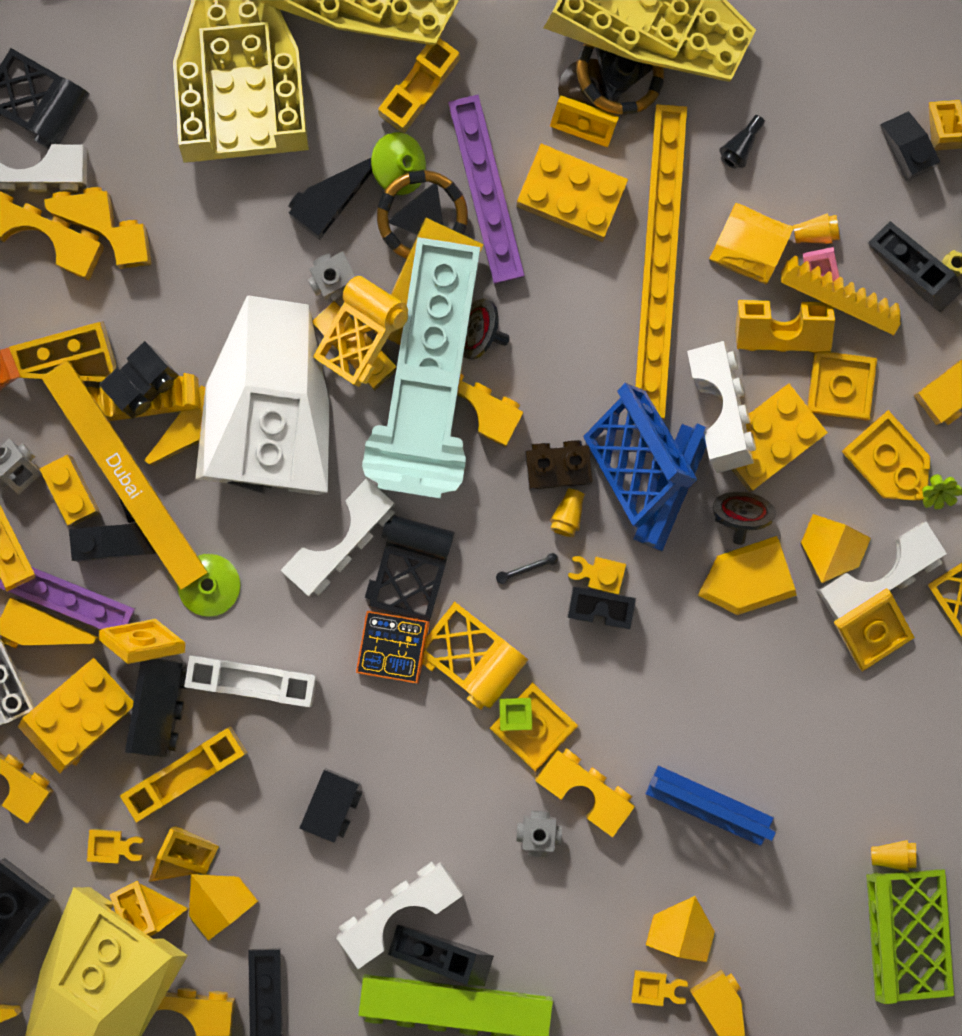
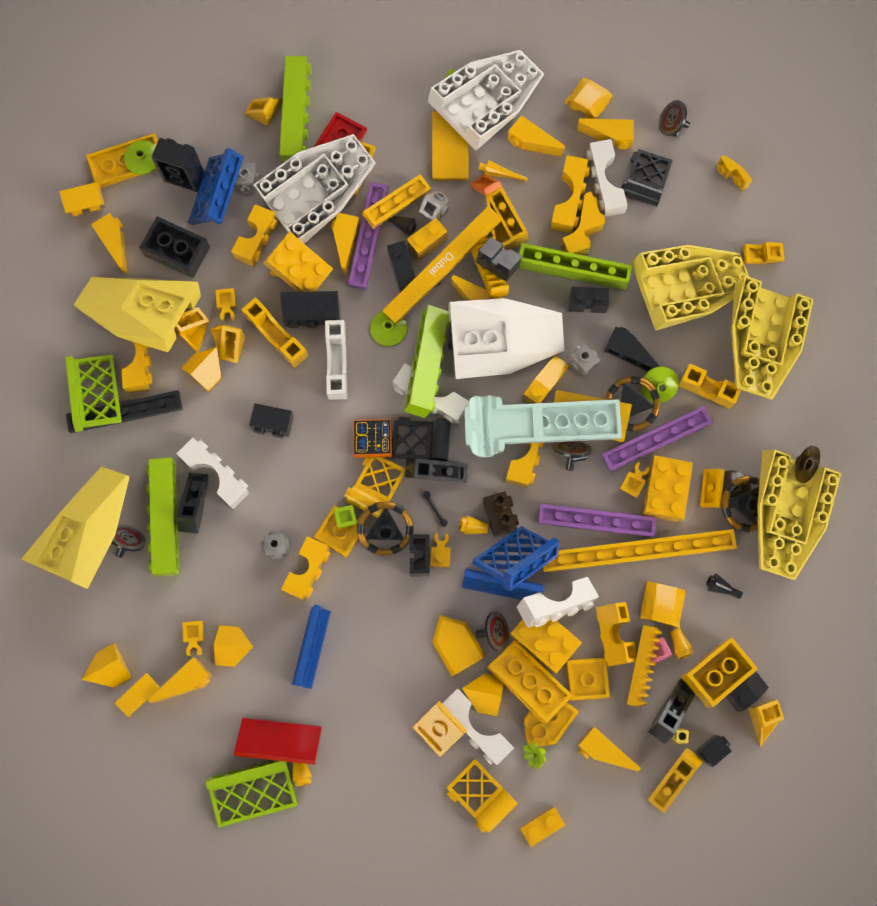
camera: 80 degrees right, 10 degrees down
(34, 522) = (405, 224): none -> black cone
(141, 641) = (347, 292): yellow tile -> none
(170, 256) = (575, 266): none -> lime brick
(232, 232) = (589, 297): none -> black brick
(287, 533) = (426, 362): none -> lime brick
(369, 306) = (568, 384): yellow piece -> none
(467, 555) = (436, 470): none -> black slope
(546, 654) = (384, 528): none -> black piece
(549, 243) = (633, 482): none -> yellow plate
(599, 315) = (597, 520): none -> medium lavender plate
(830, 476) = (530, 682): none -> yellow tile
(844, 882) = (278, 741): none -> red tile
(874, 182) = (719, 672): none -> yellow brick

